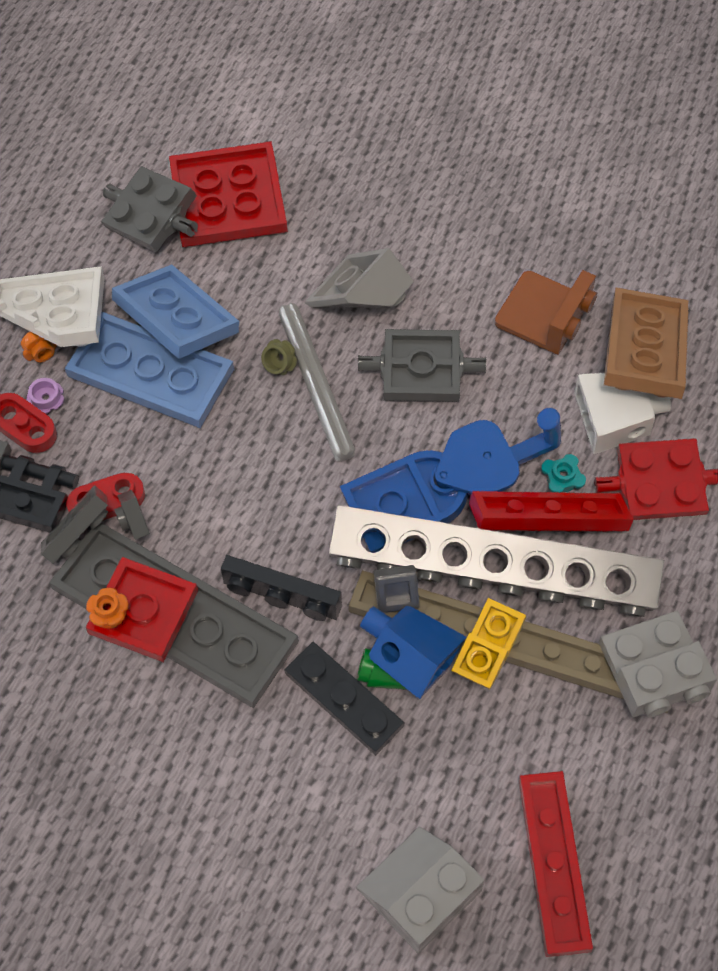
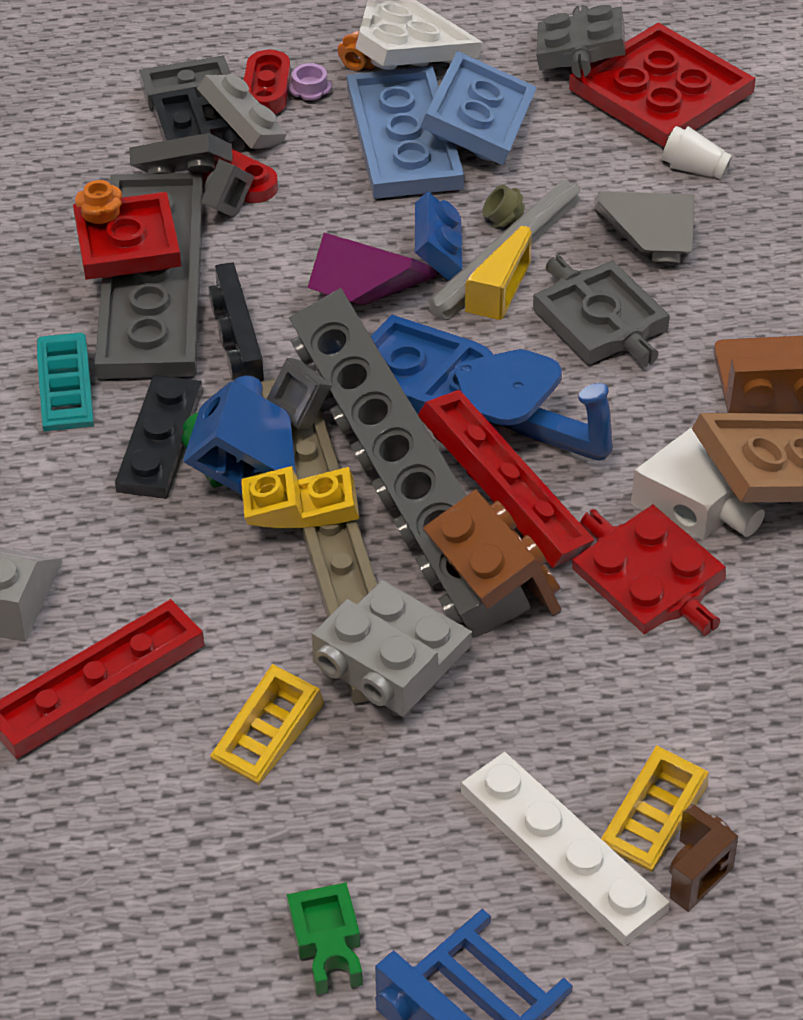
camera: 55 degrees right, 15 degrees down
(51, 457) = (242, 111): none -> light grey plate
(242, 747) = (62, 355): none -> teal slope
(287, 475) = (364, 270): none -> magenta slope
(290, 415) = (438, 235): none -> blue plate
(312, 220) = (695, 154): none -> white cone
(354, 405) = (497, 279): none -> yellow slope
(561, 483) = (577, 492): teal plate -> none
(630, 563) = (489, 552): none -> dark orange bracket
(630, 753) = (275, 683): none -> yellow slope

